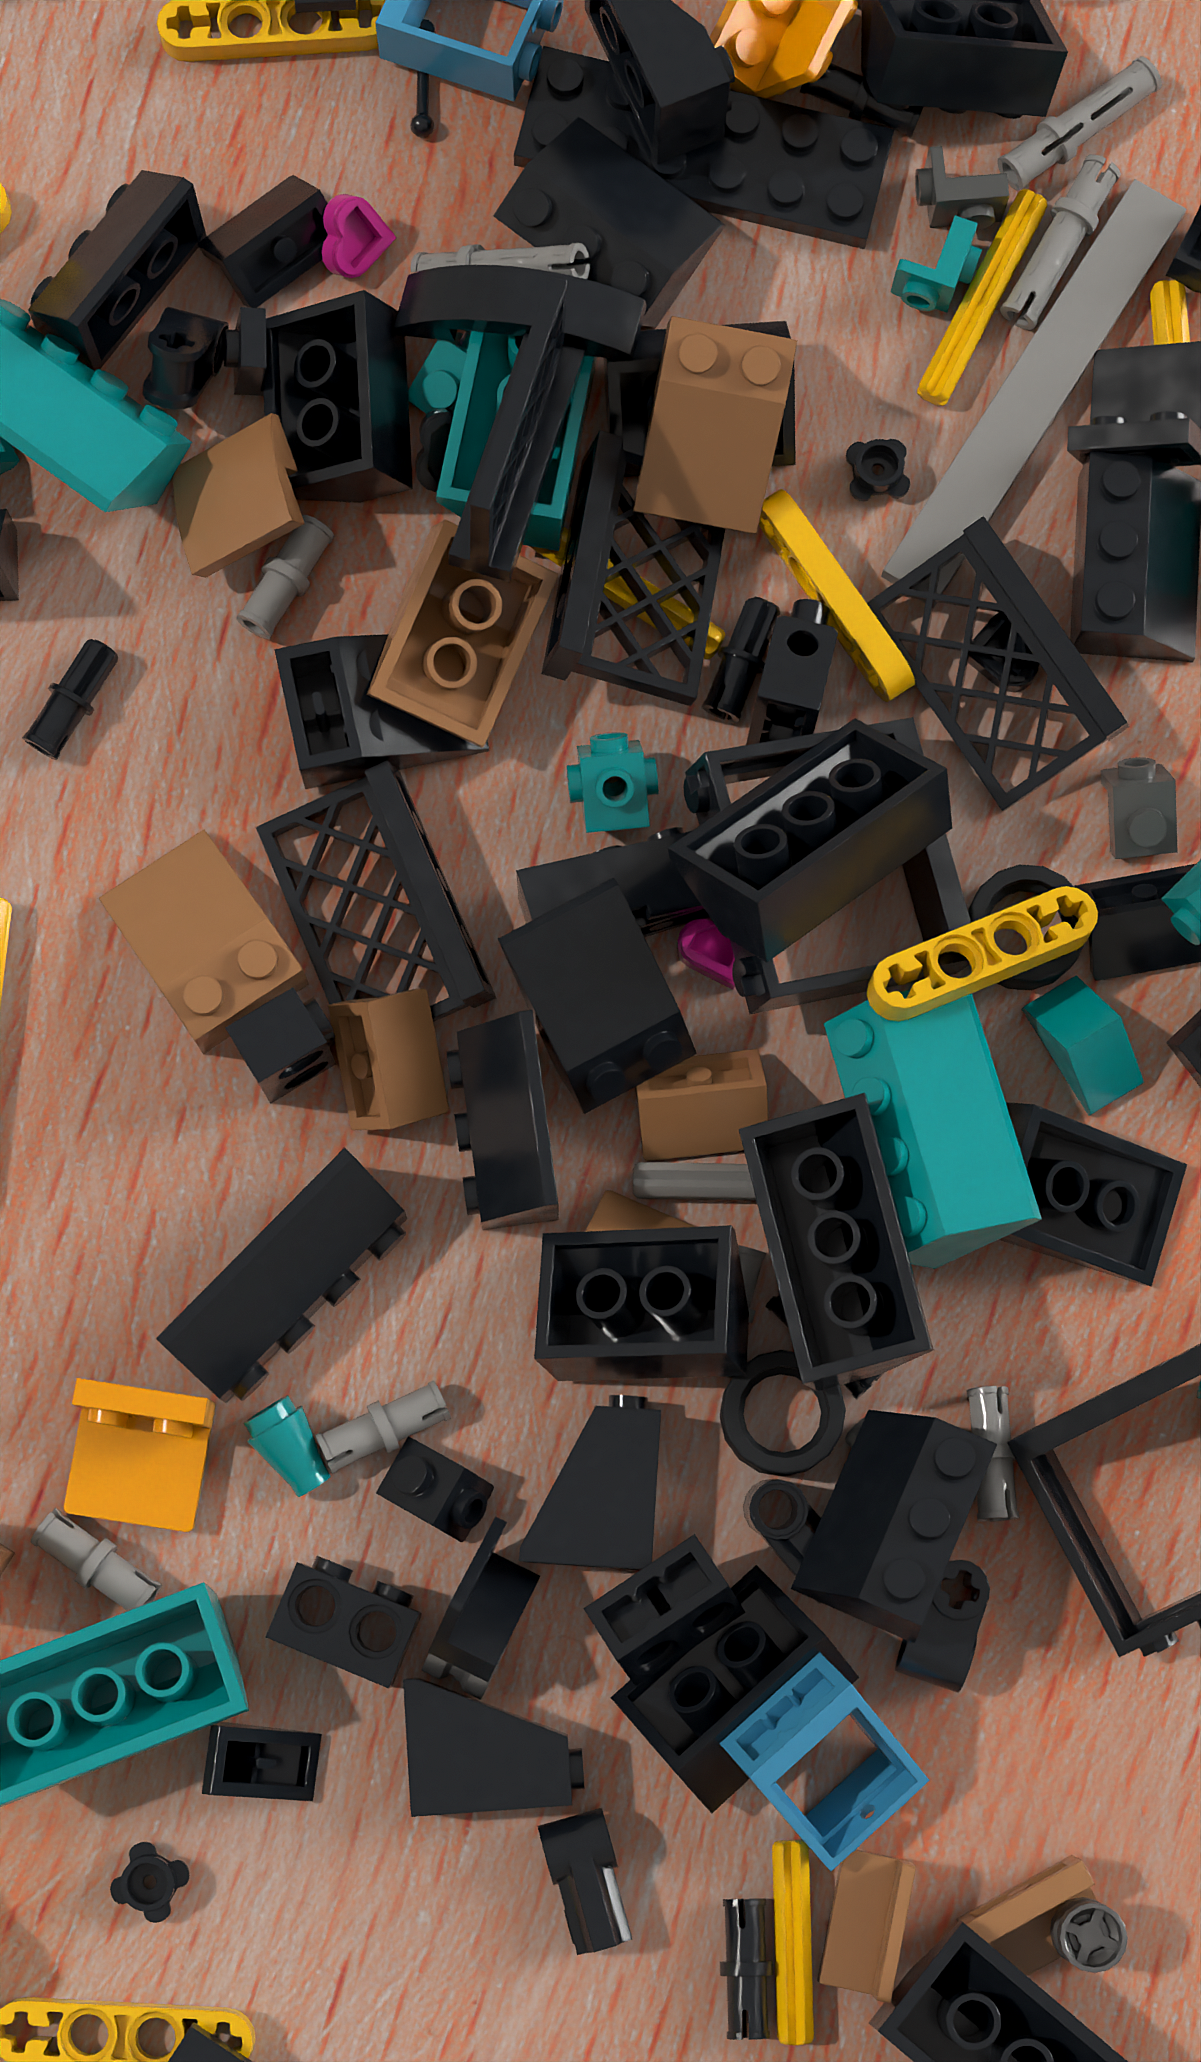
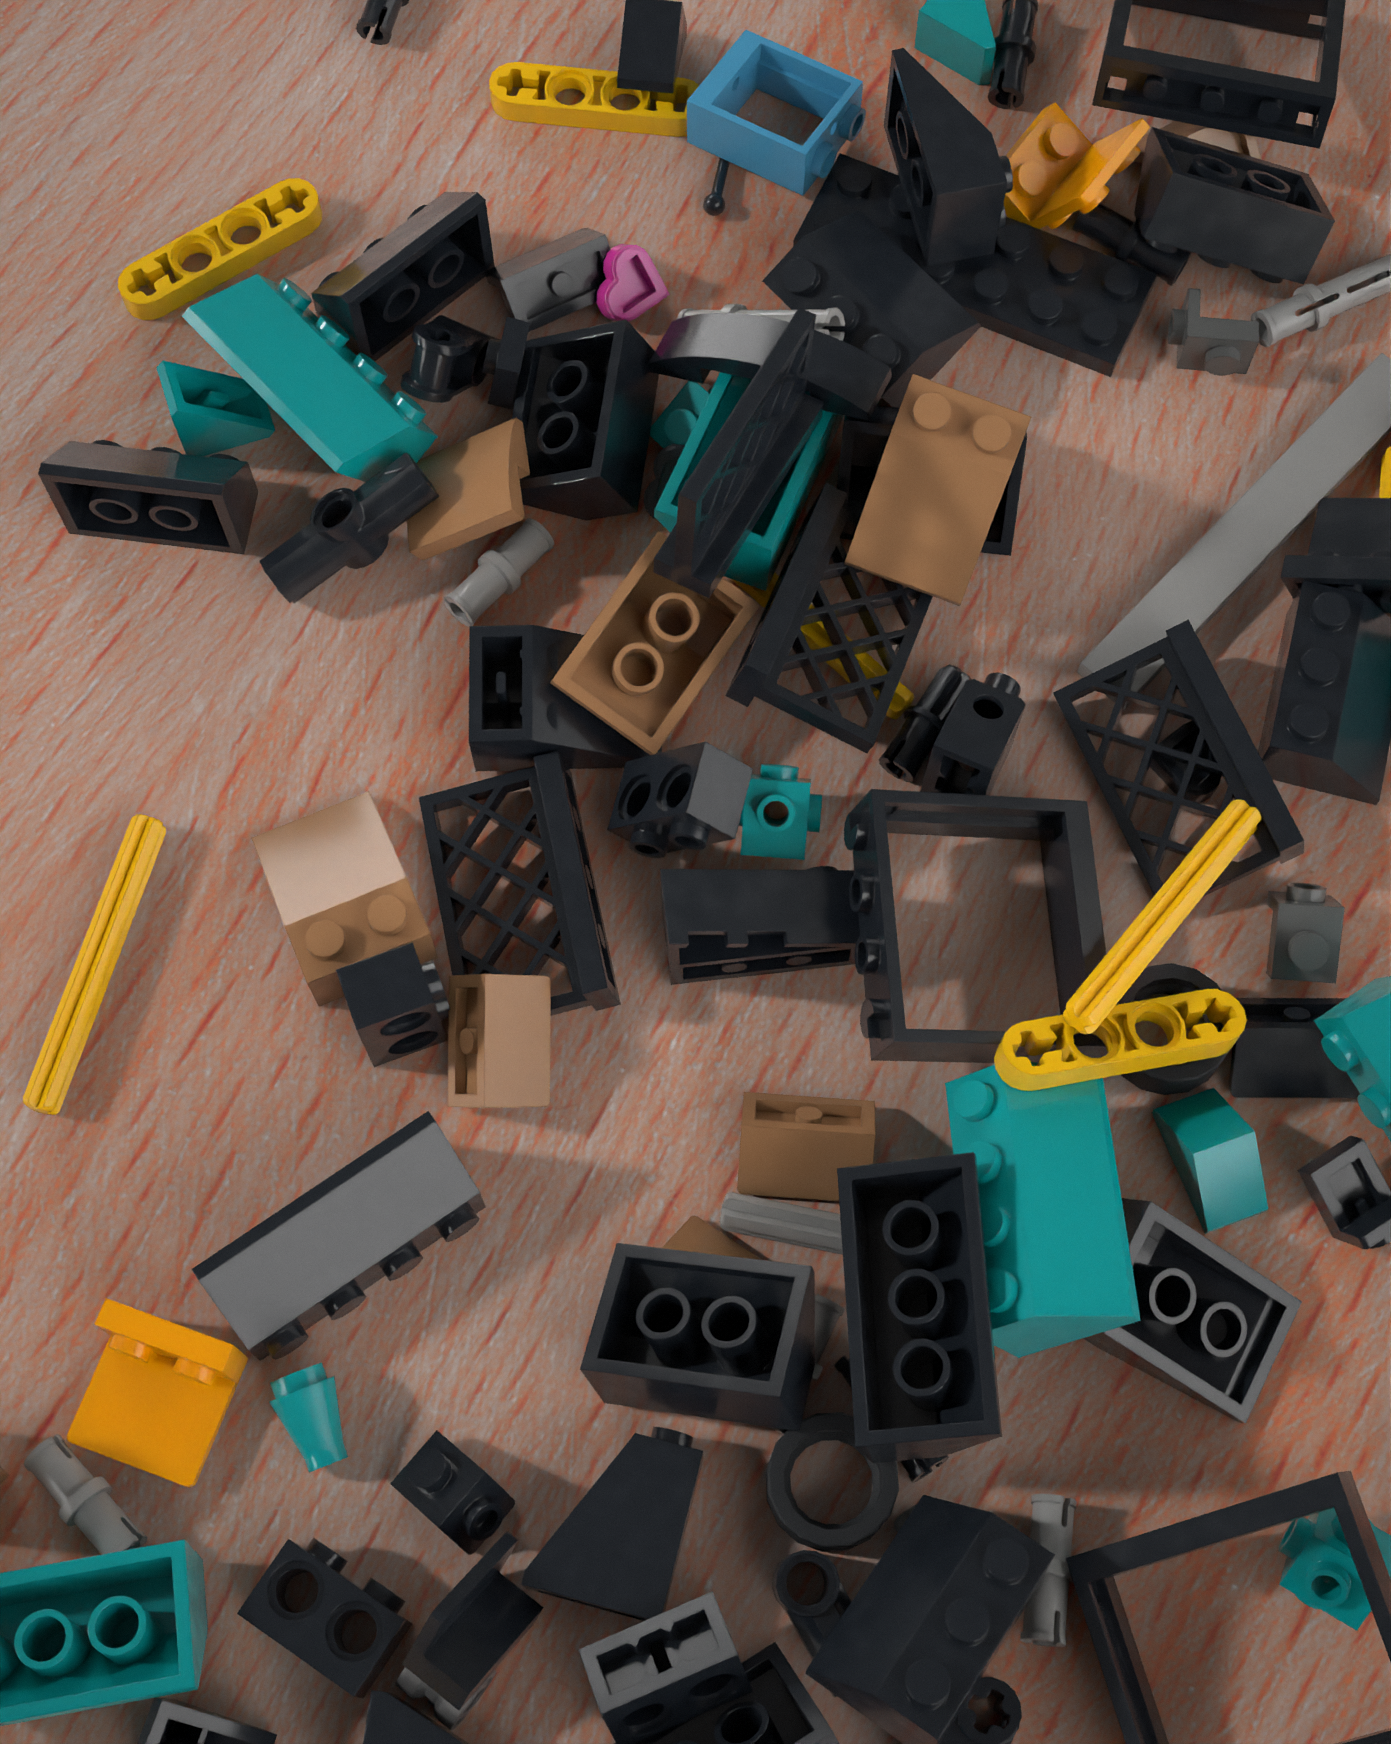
camera: 15 degrees right, 10 degrees down
(71, 698) = (269, 648): black axle -> none
(126, 561) = (349, 528): none -> black piece
(383, 1426) = (412, 1415): light grey pin -> none
(504, 1123) = (601, 1125): black slope -> none
(517, 790) = (680, 800): none -> black brick
(597, 996) = (718, 1010): black slope -> none
(706, 951) = (840, 994): dark pink tile -> none
(814, 837) = (966, 890): black slope -> none
(827, 582) = (1018, 656): yellow beam -> none
(881, 452) = (1093, 556): black plate -> none
(934, 288) = (1174, 415): teal bracket -> none
(982, 297) = (1216, 435): yellow axle -> none
(1003, 825) = (1161, 917): none -> yellow axle
(1072, 220) = (1316, 378): light grey pin -> none

